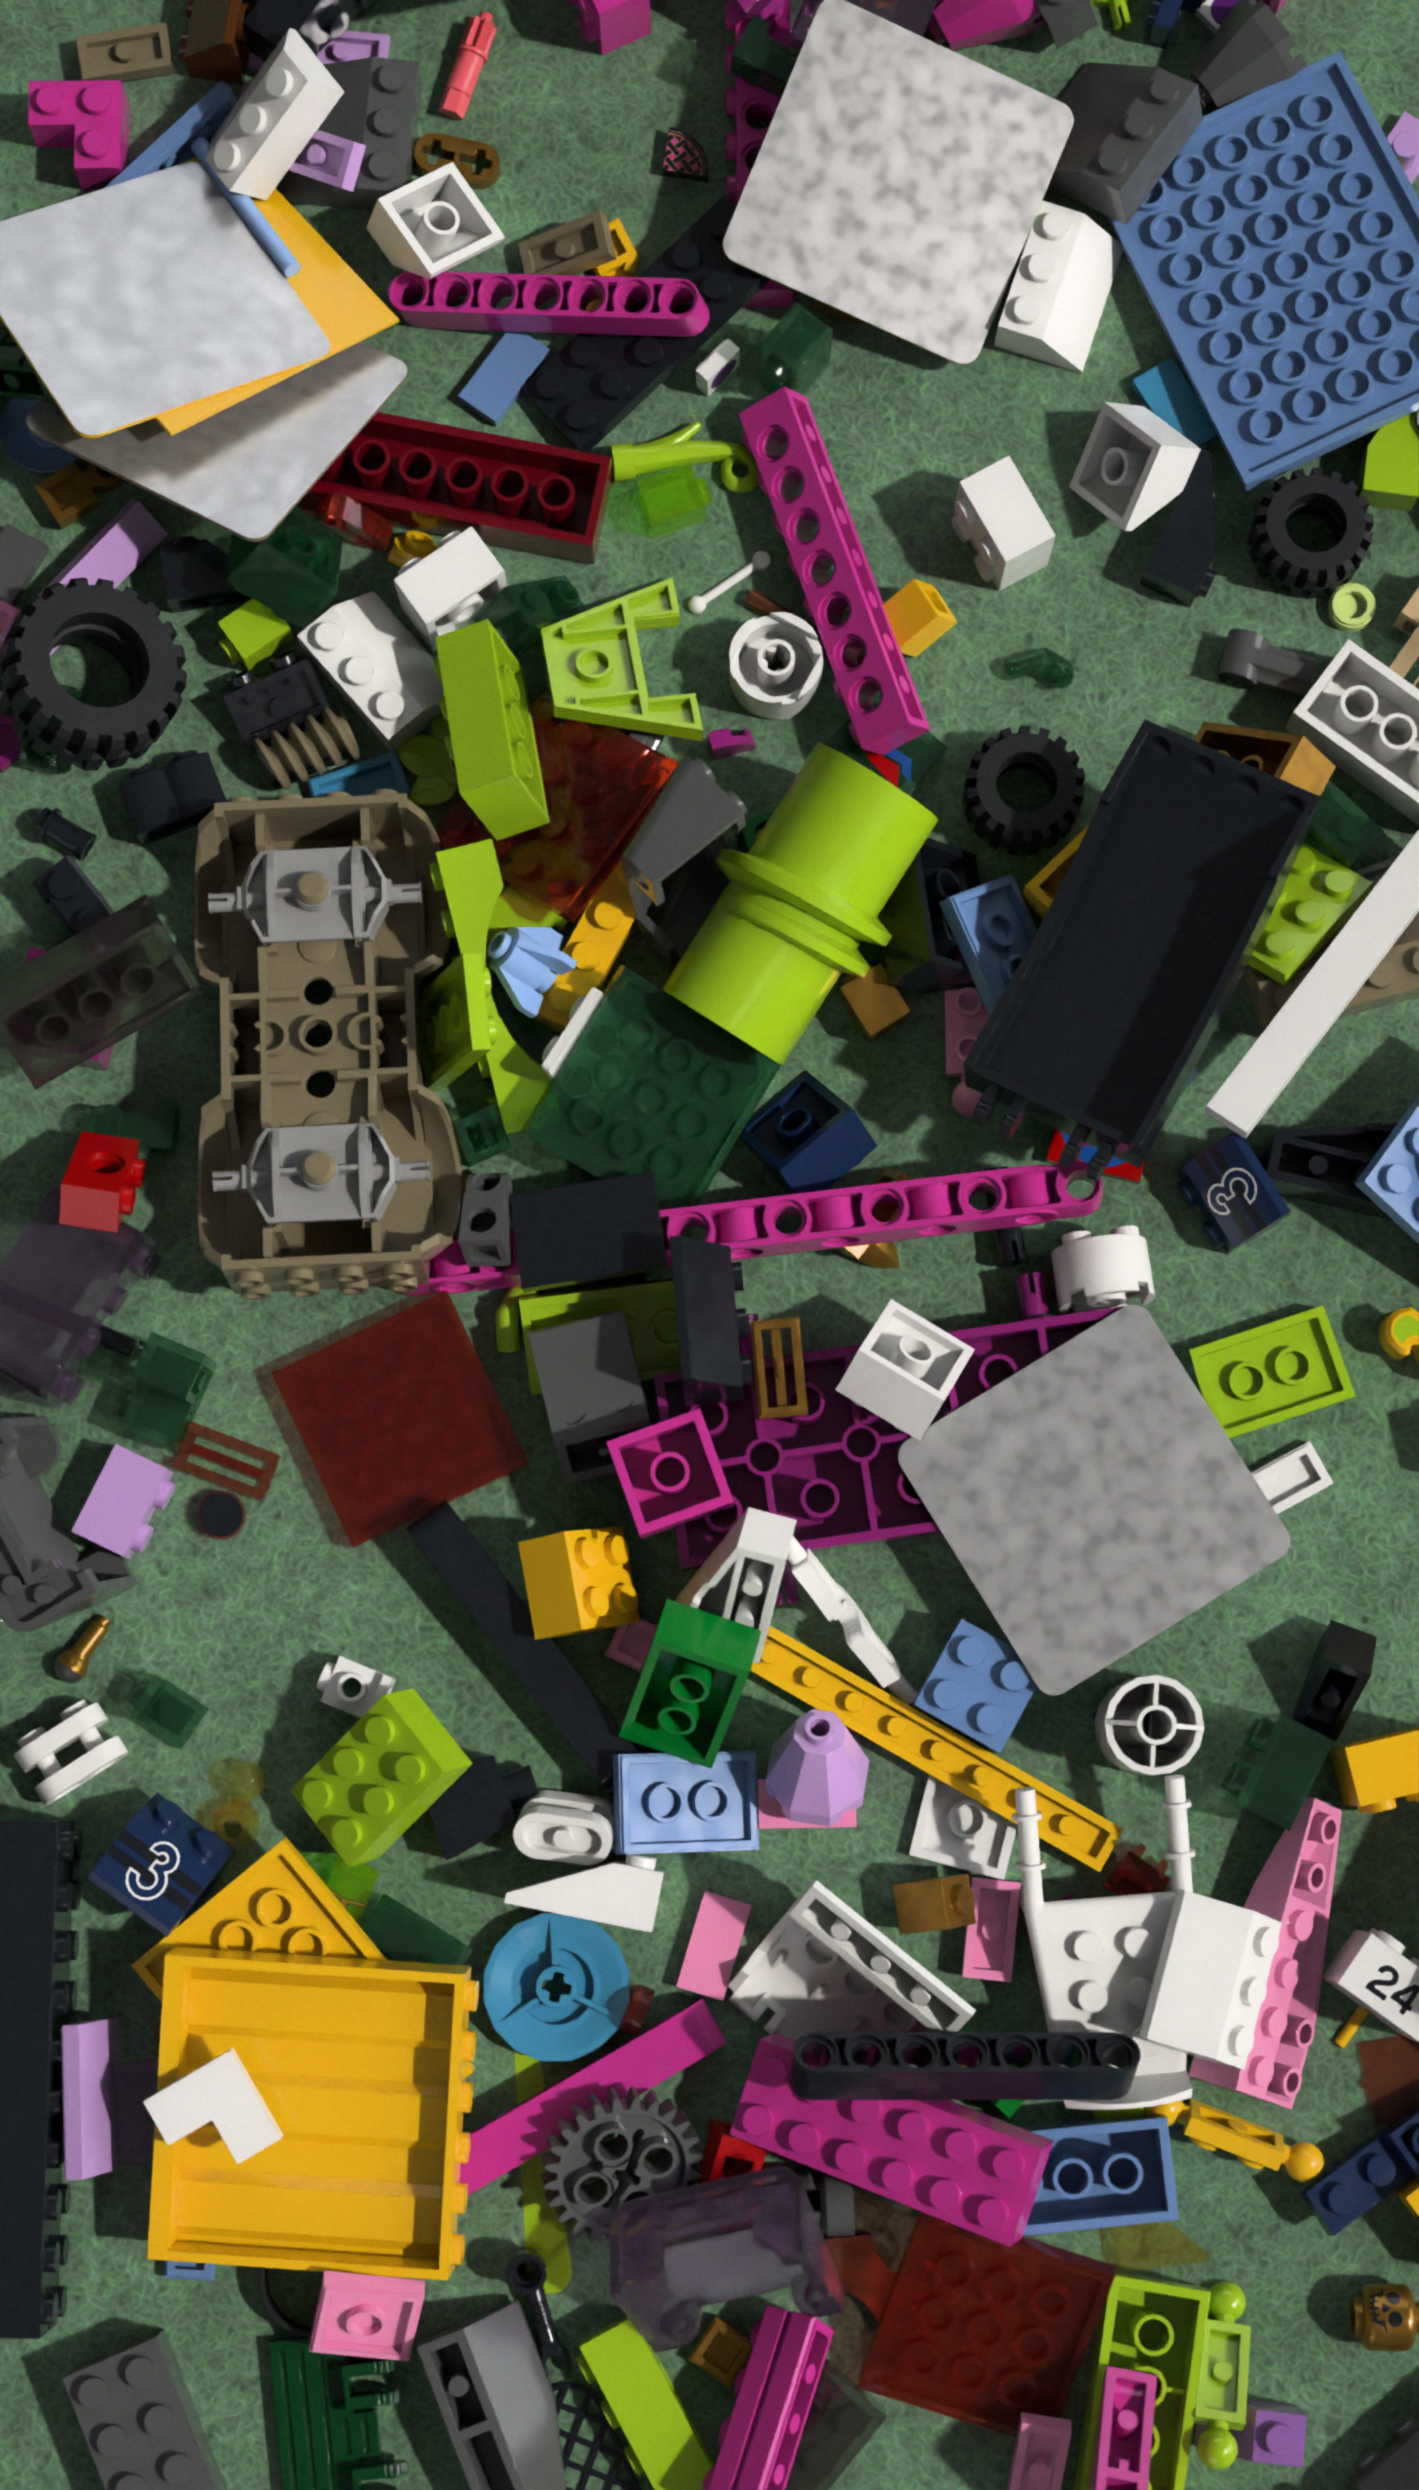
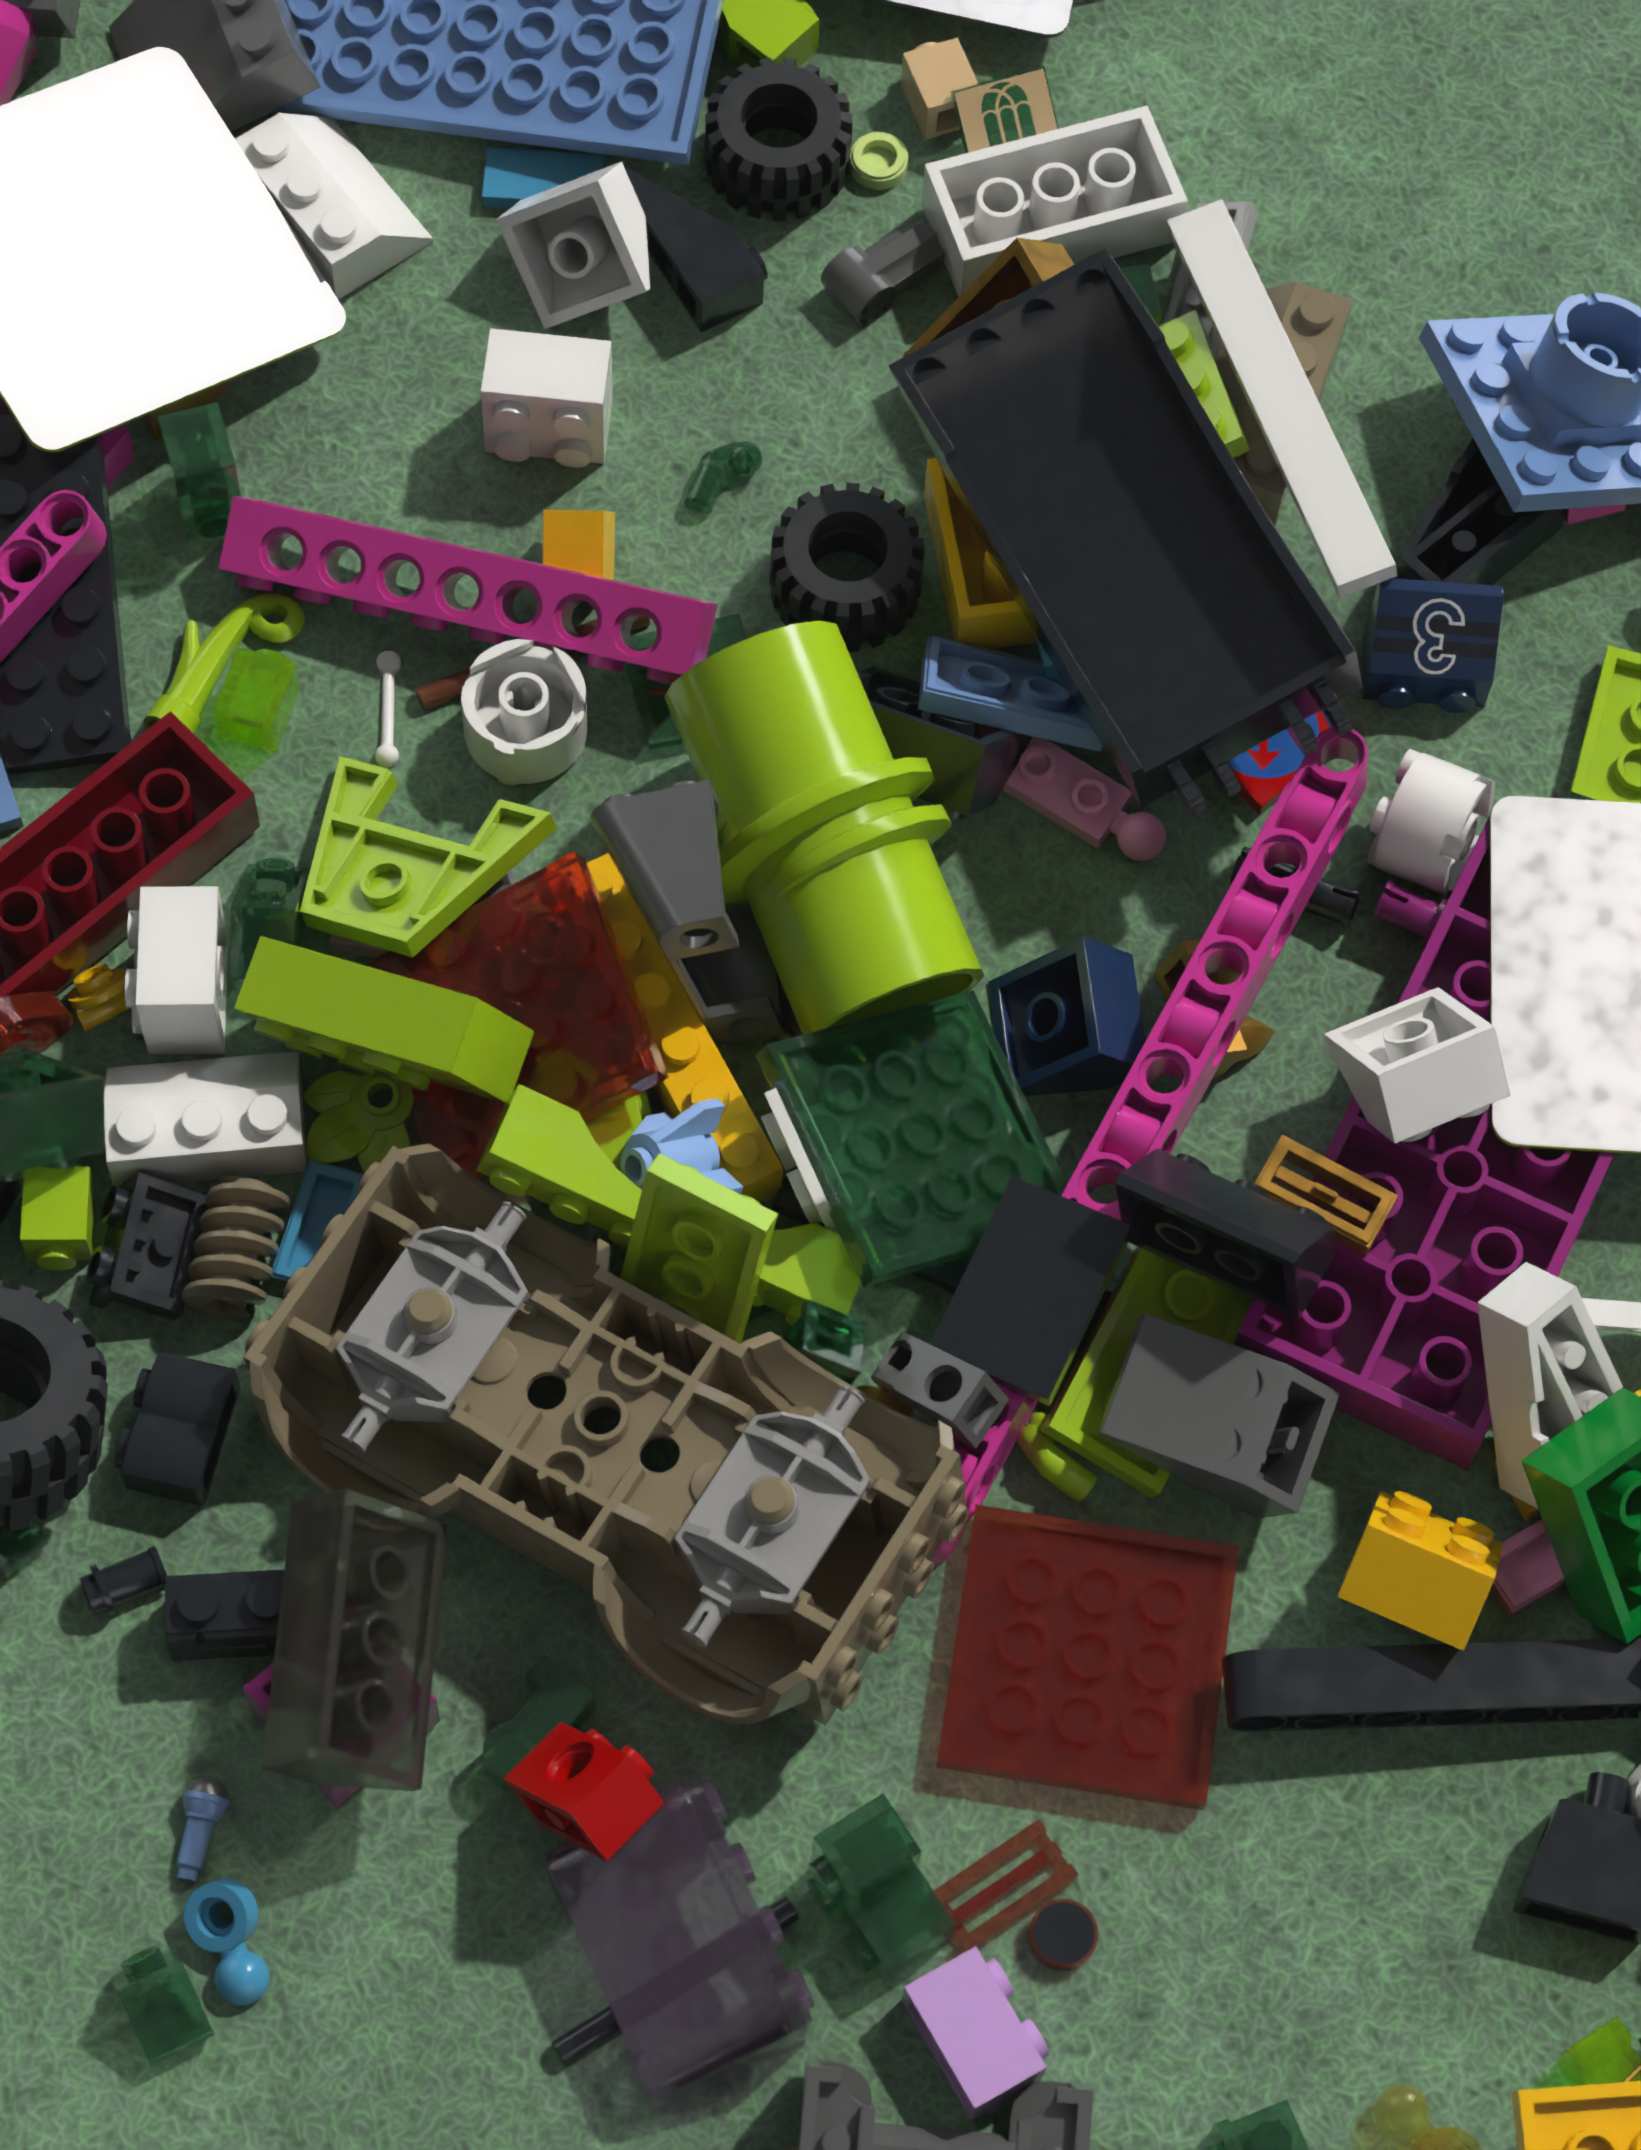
camera: 60 degrees left, 15 degrees down
(372, 1683) = (1365, 1937): white brick -> none
(381, 1776) = (1511, 1934): lime brick -> none
(670, 1473) = (1376, 1372): dark pink brick -> none
(717, 366) = (145, 561): white tile -> none
(723, 744) = (569, 820): magenta tile -> none
(873, 1003) = (974, 859): pearl gold brick -> none

